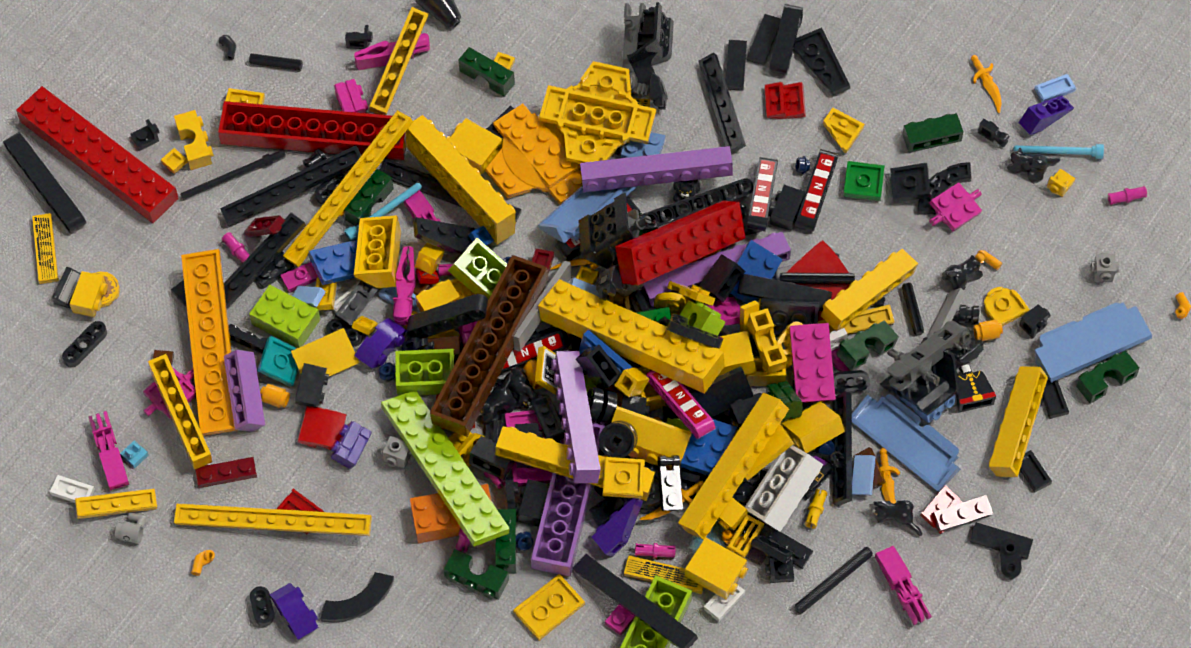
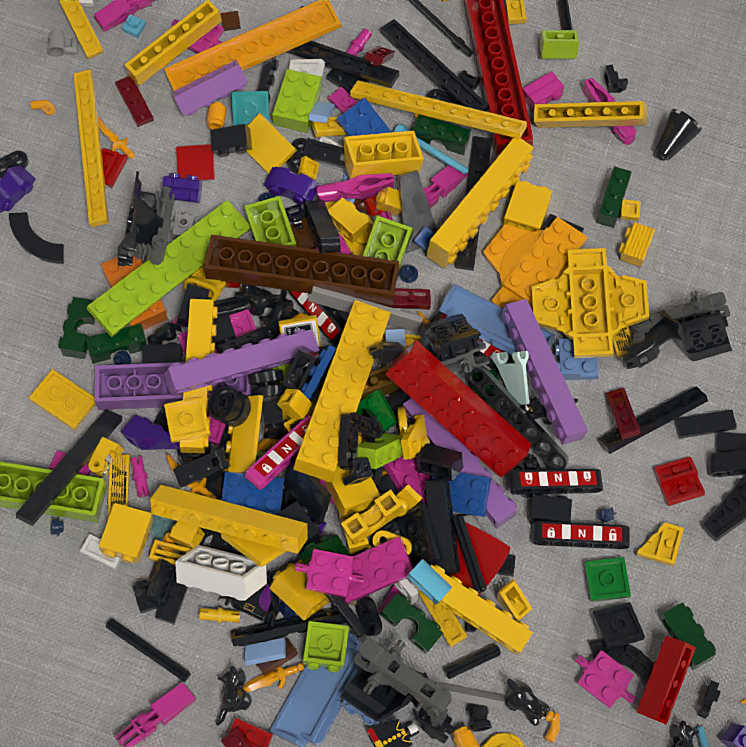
camera: 75 degrees right, 5 degrees up
(249, 299) = (309, 66): none -> white plate
(273, 493) = (117, 143): none -> light orange piece
(305, 71) = (559, 44): none -> lime brick
(390, 476) = (146, 226): none -> black piece
(541, 67) = (637, 244): none -> yellow brick
(626, 574) = (103, 456): none -> yellow leg
(654, 194) = (514, 374): none -> light aqua flag
(710, 122) = (623, 413): none -> dark red plate
(728, 334) = (360, 471): none -> black bracket
(810, 392) = (329, 573): none -> dark pink plate
(837, 396) = (347, 614): none -> black pin
(843, 309) = (429, 581): none -> medium azure brick
(863, 259) = (514, 600): none -> yellow slope
(873, 419) = (325, 646): none -> lime plate
(972, 156) = (666, 679): none -> red brick

